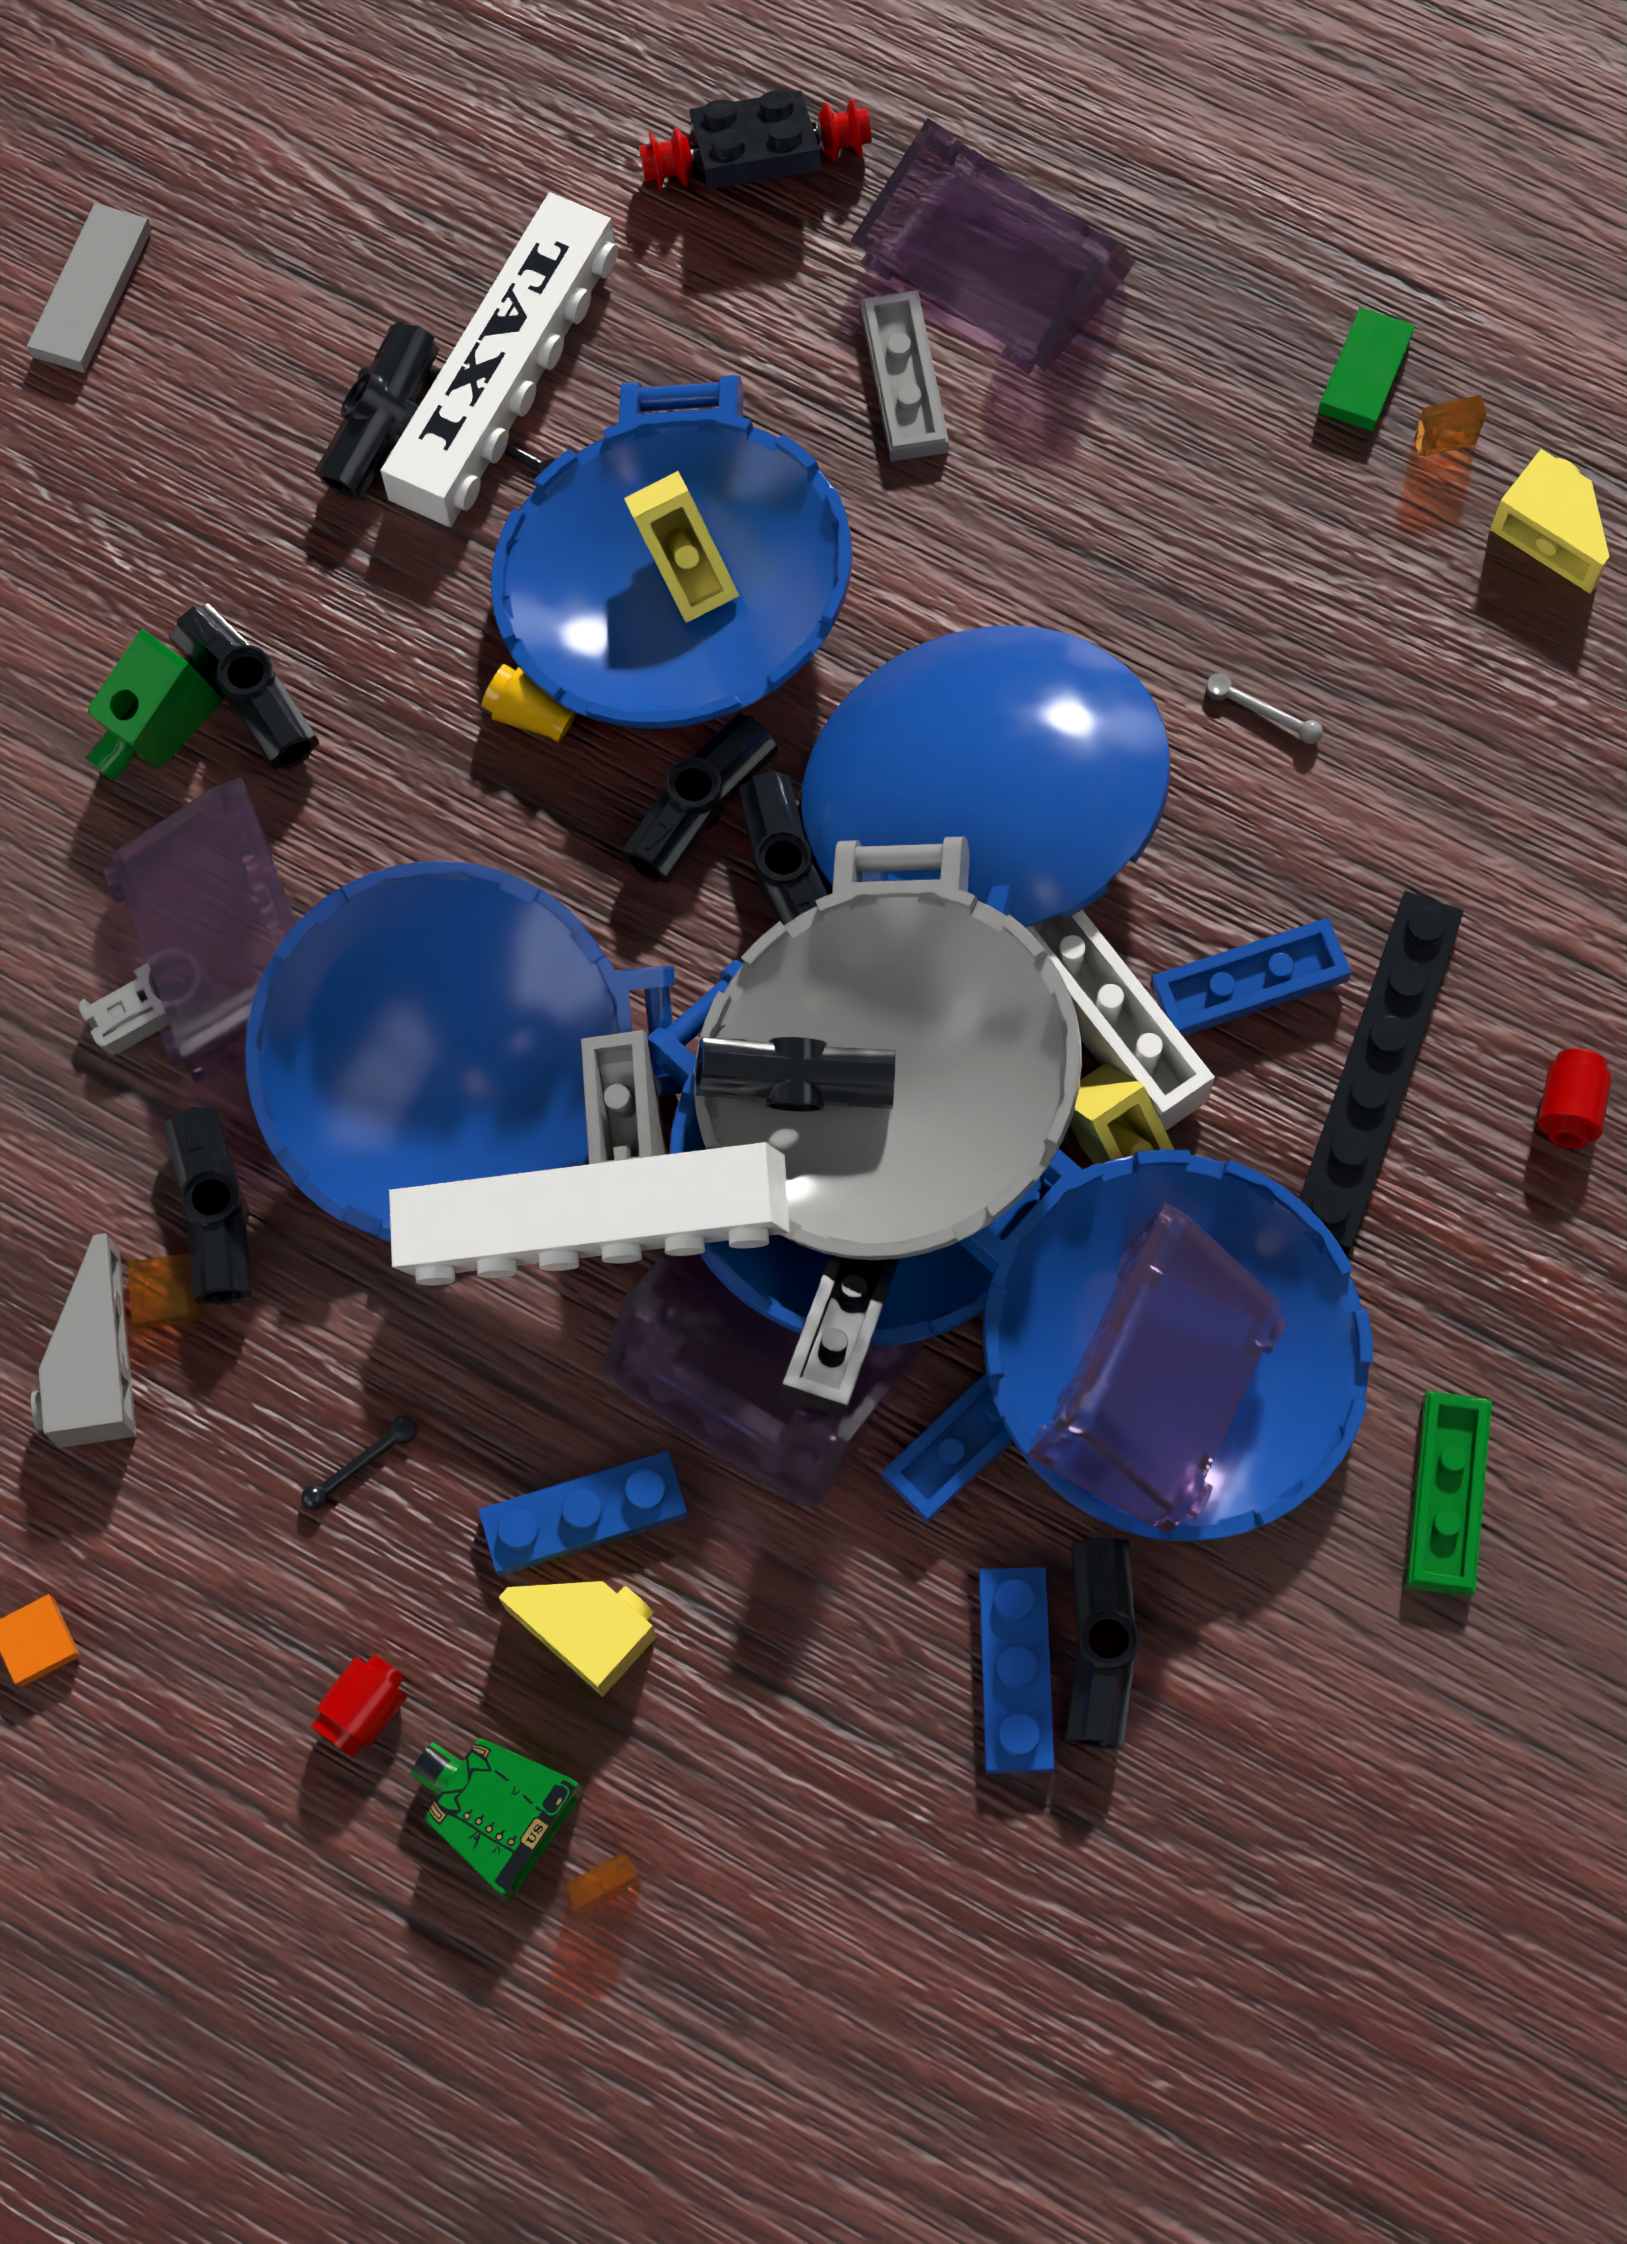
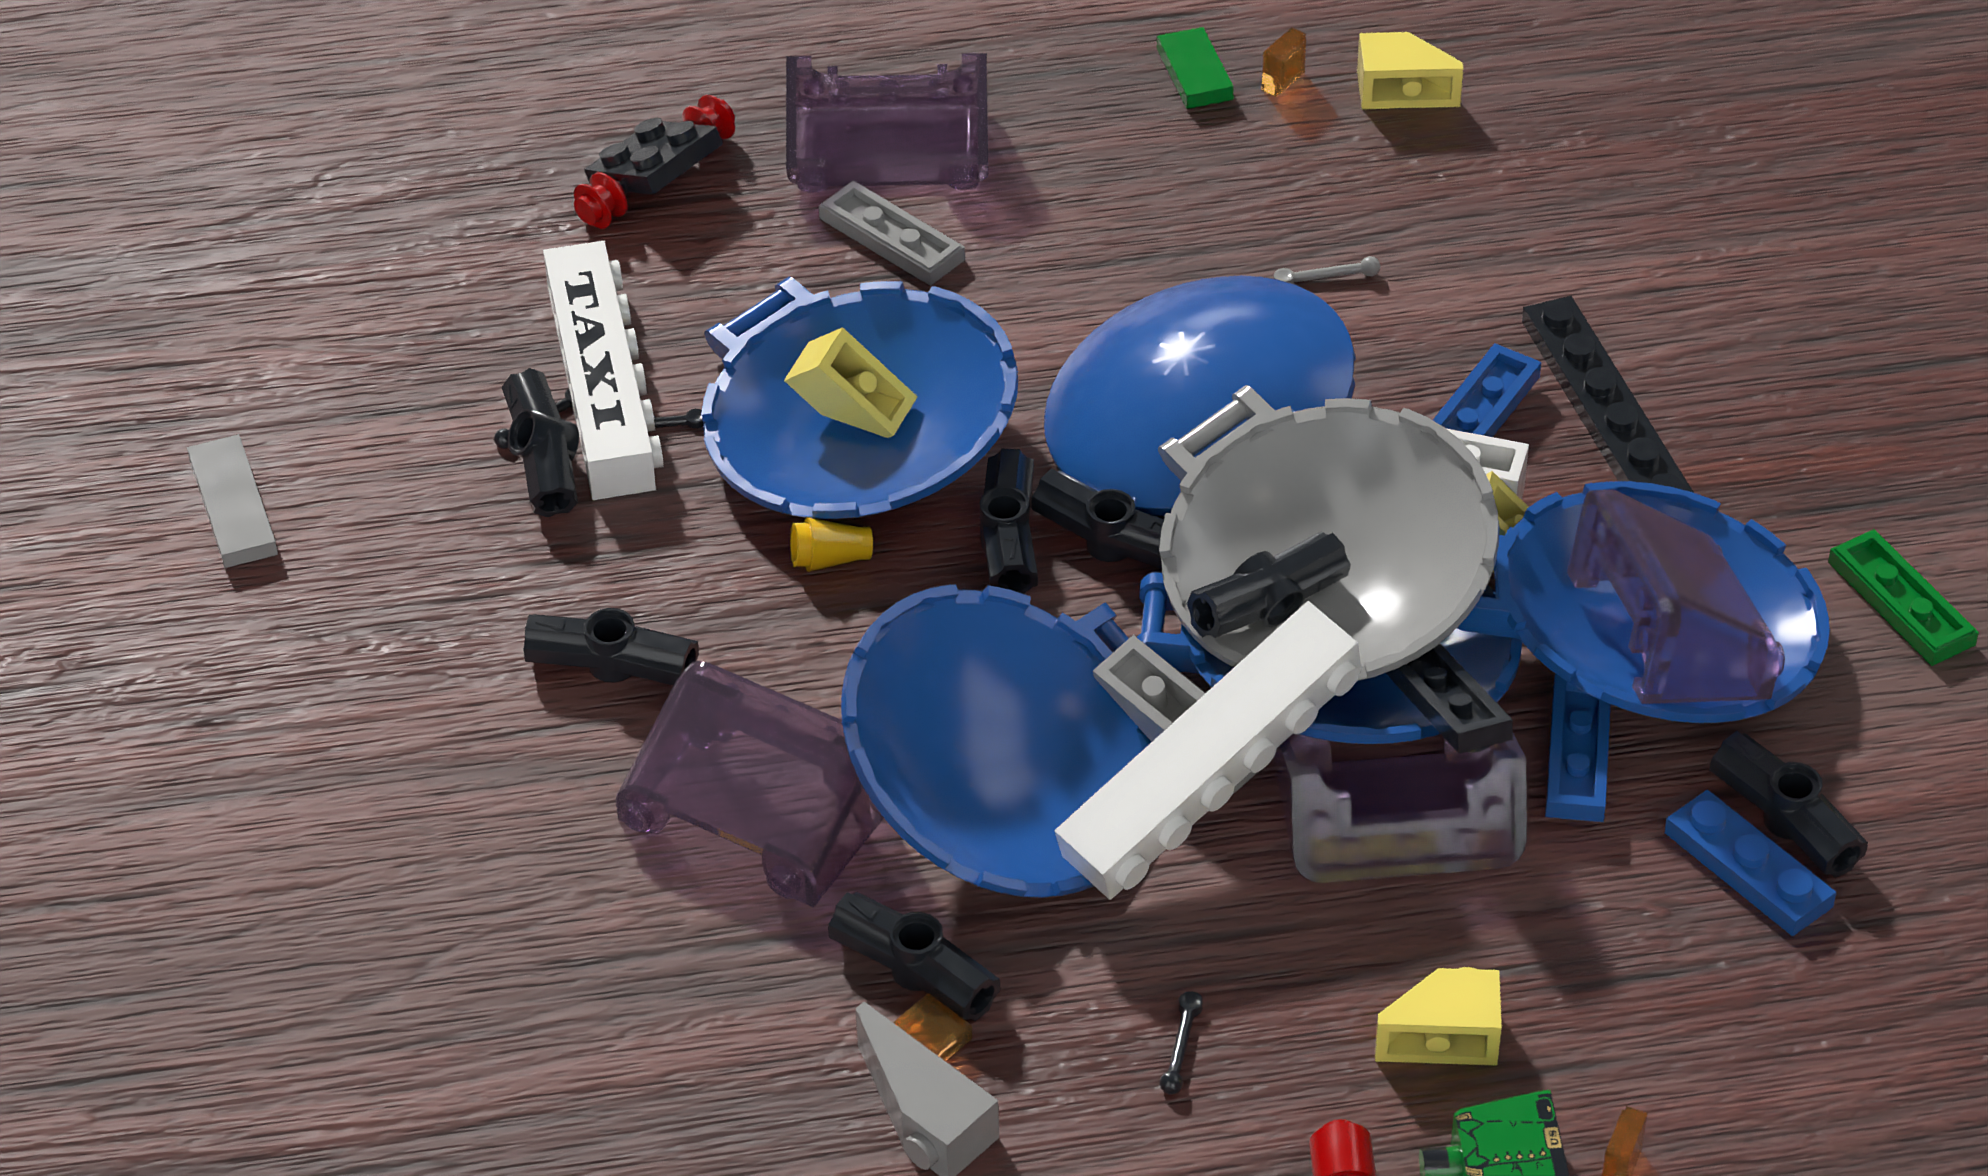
camera: 40 degrees left, 25 degrees down
(126, 1013) = (725, 887): light grey piece -> none
(148, 707) = (555, 705): green torso -> none
(583, 1513) = (1369, 966): blue plate -> none
(1575, 1098) = (1747, 347): red brick -> none

